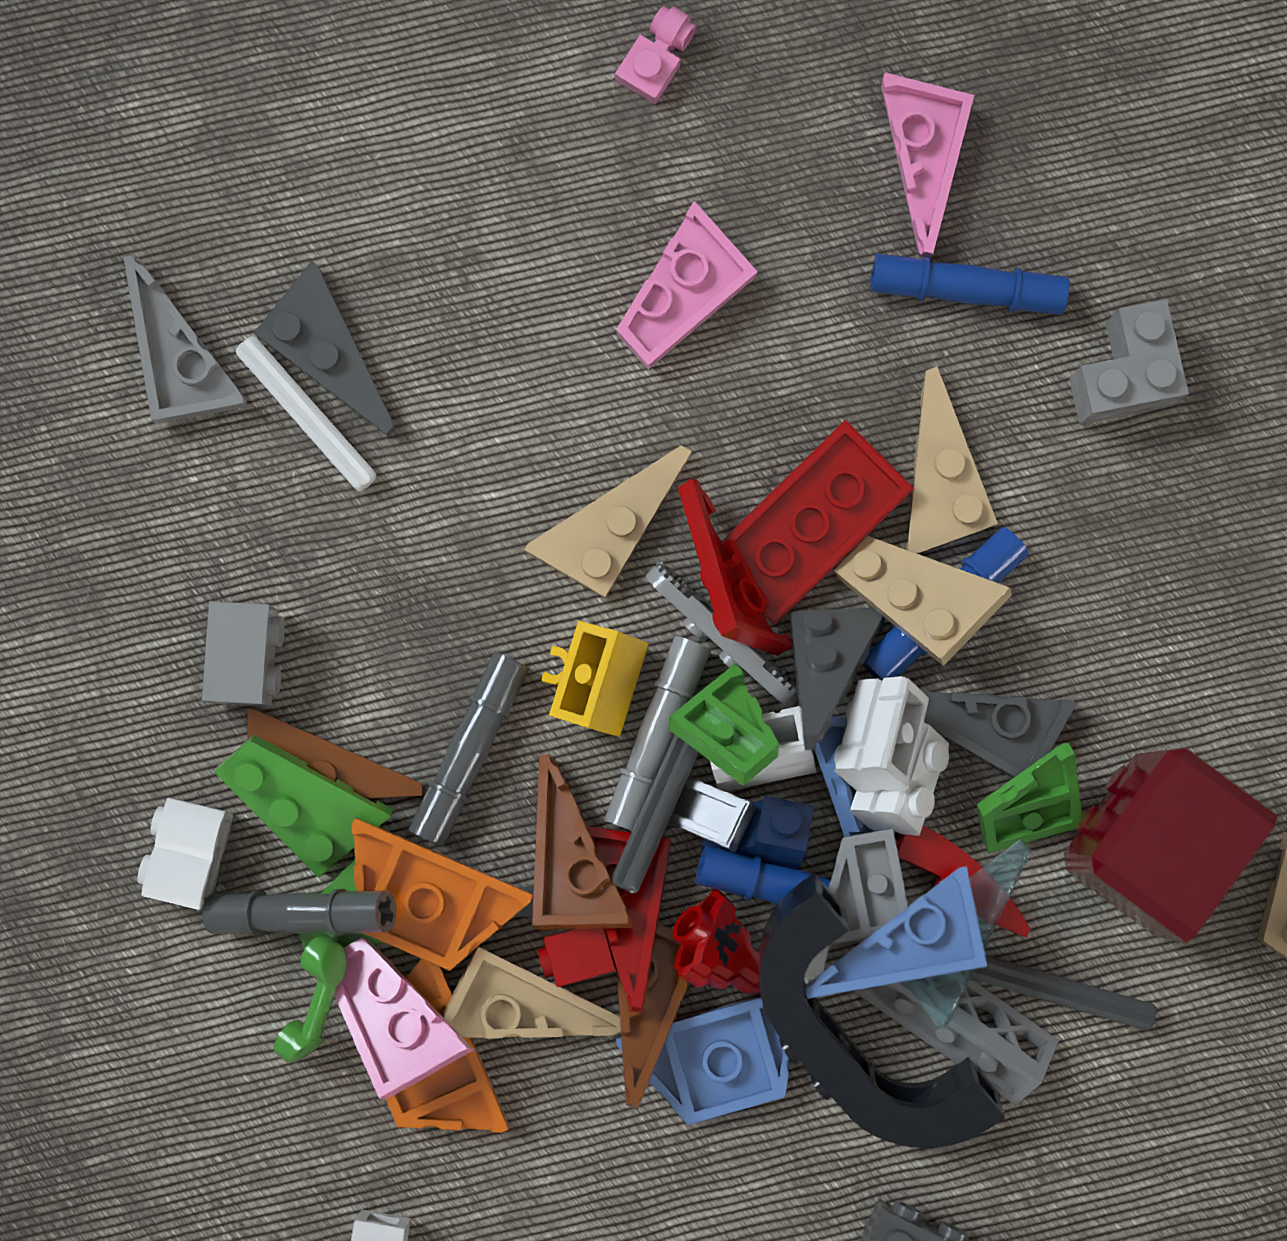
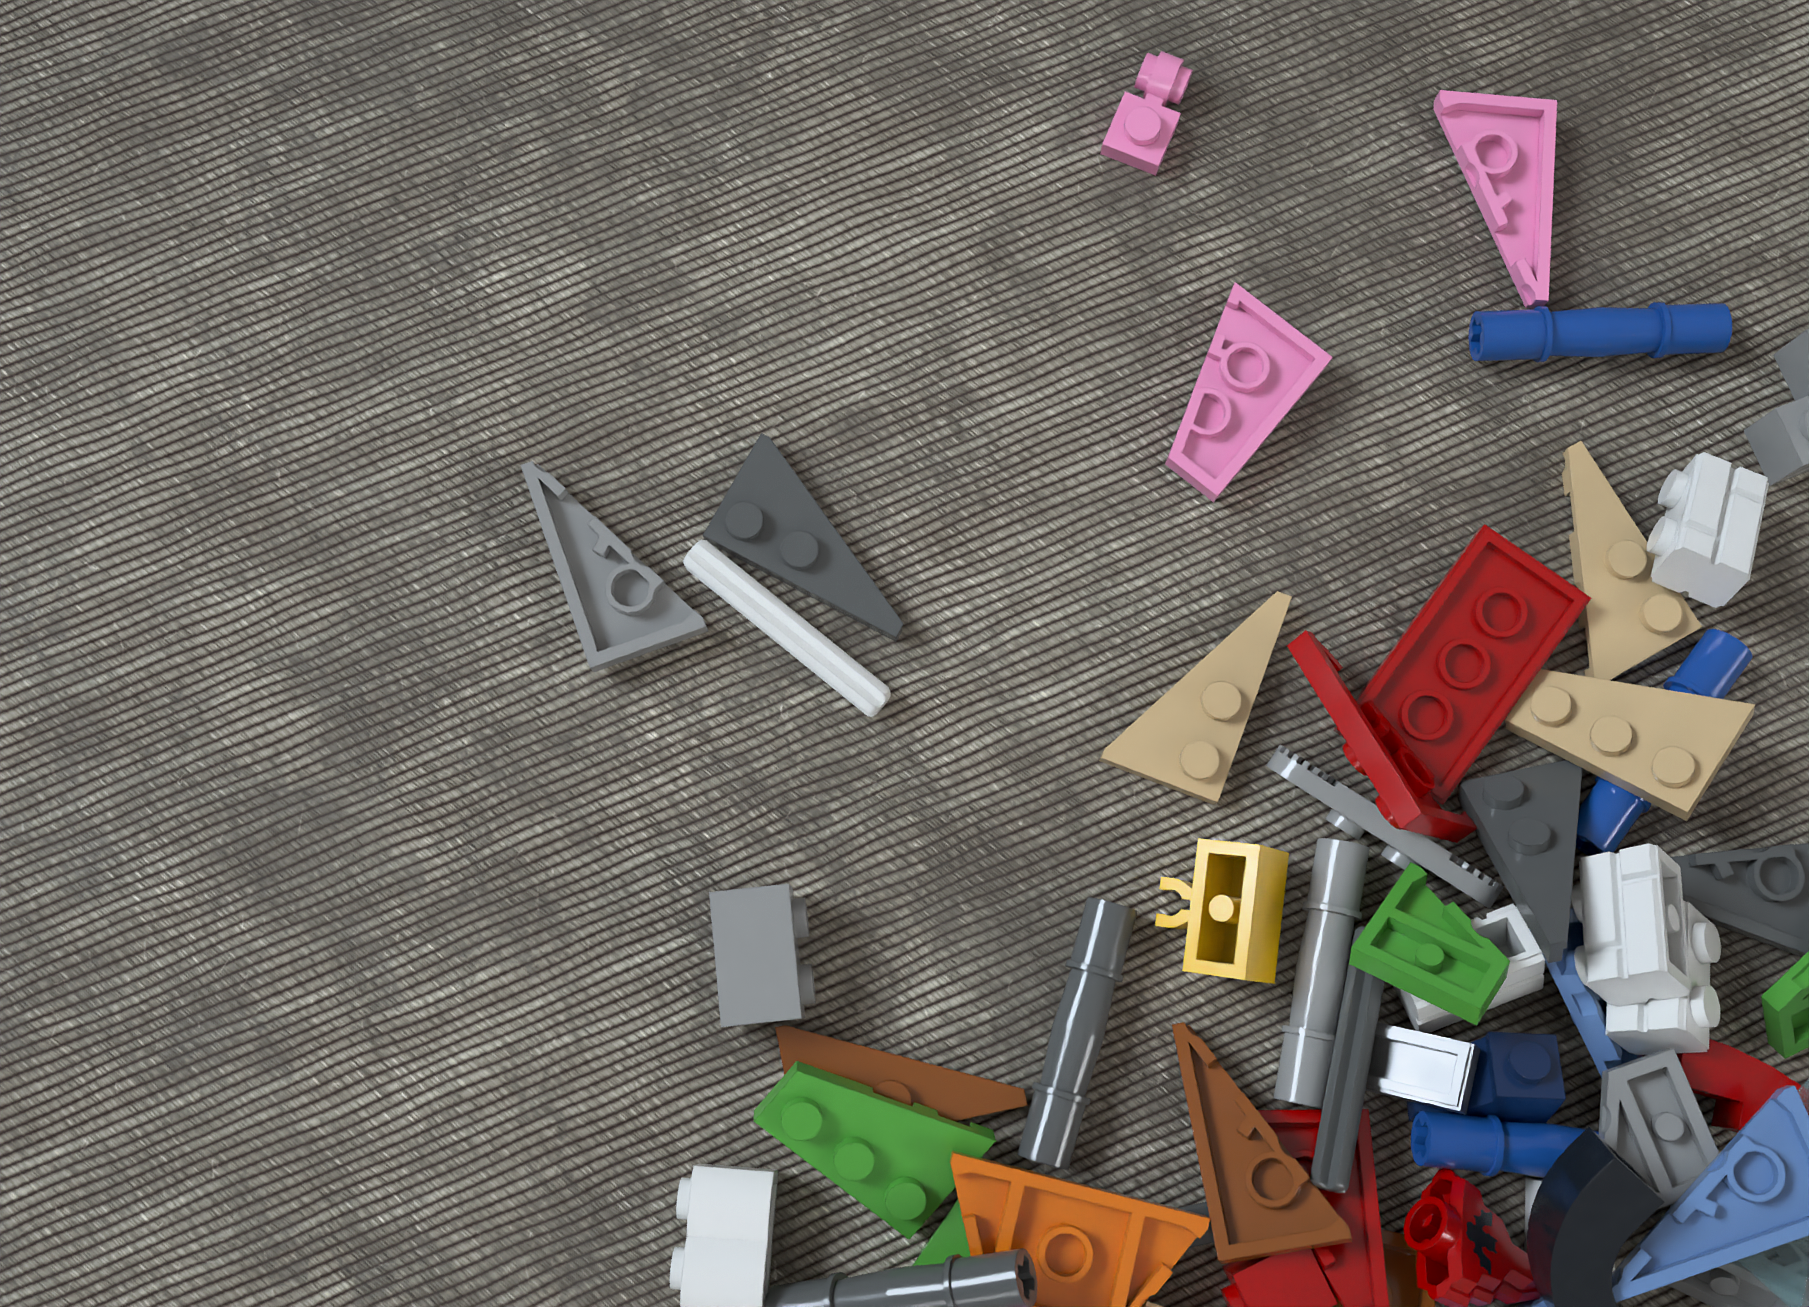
camera: 10 degrees left, 5 degrees down
(1014, 450) = (1708, 529): none -> white brick

